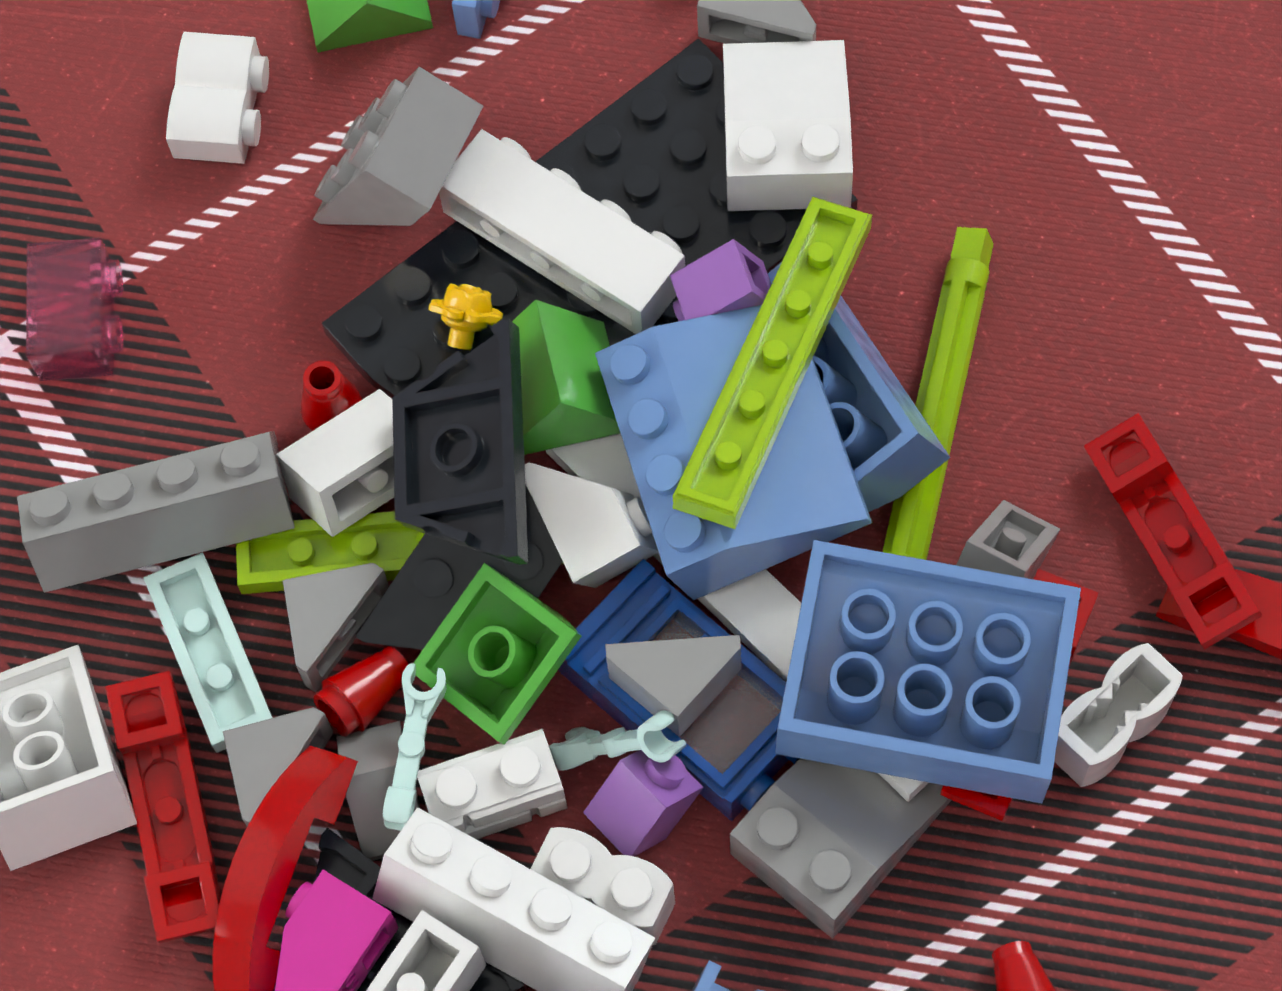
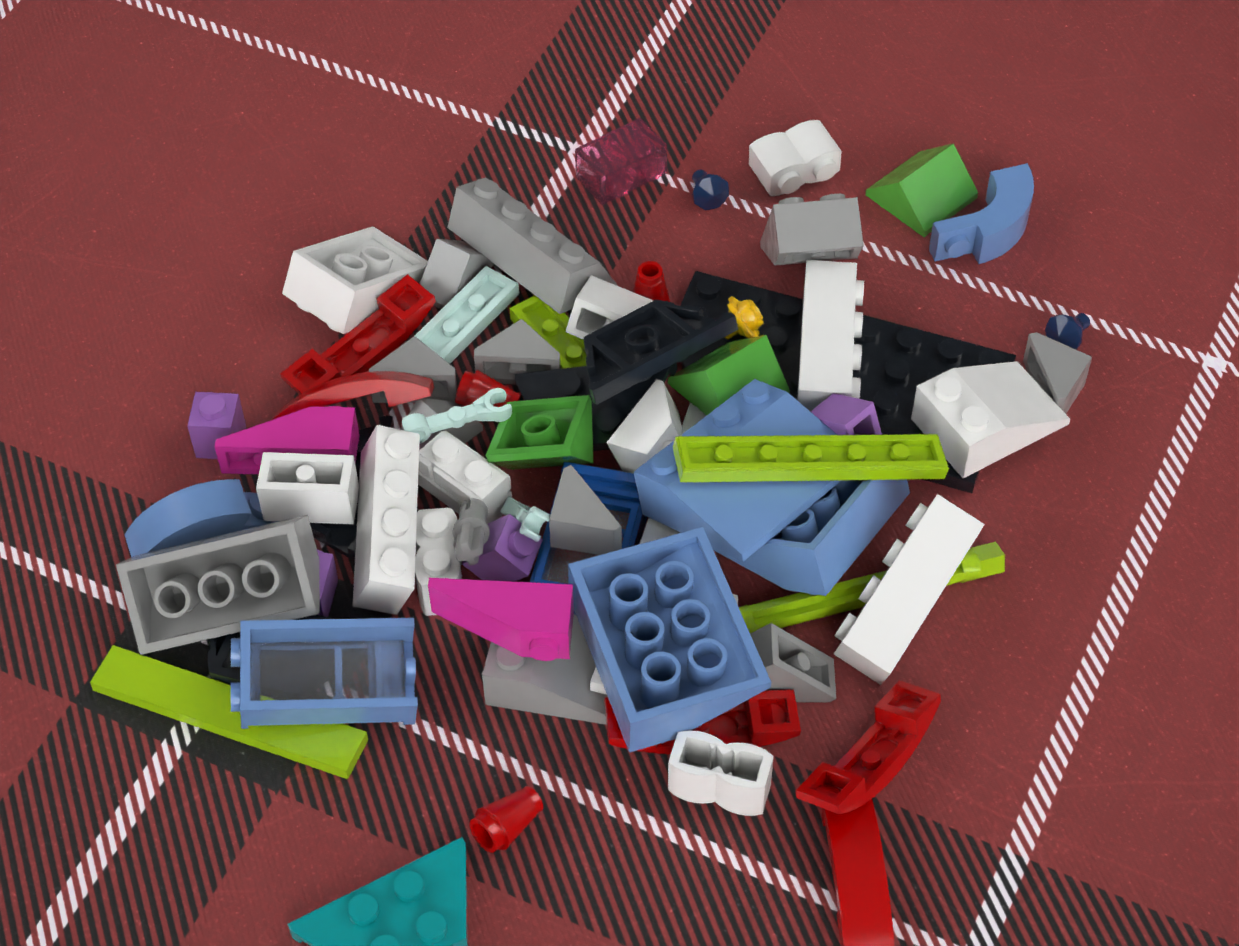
camera: 55 degrees right, 15 degrees down
(118, 628) = (451, 269): none -> light grey slope
(190, 230) = (709, 190): none -> dark blue rock
(613, 822) = (471, 531): none -> light grey axle
(800, 833) = (515, 615): none -> dark pink slope
(987, 360) = (908, 589): none -> white brick

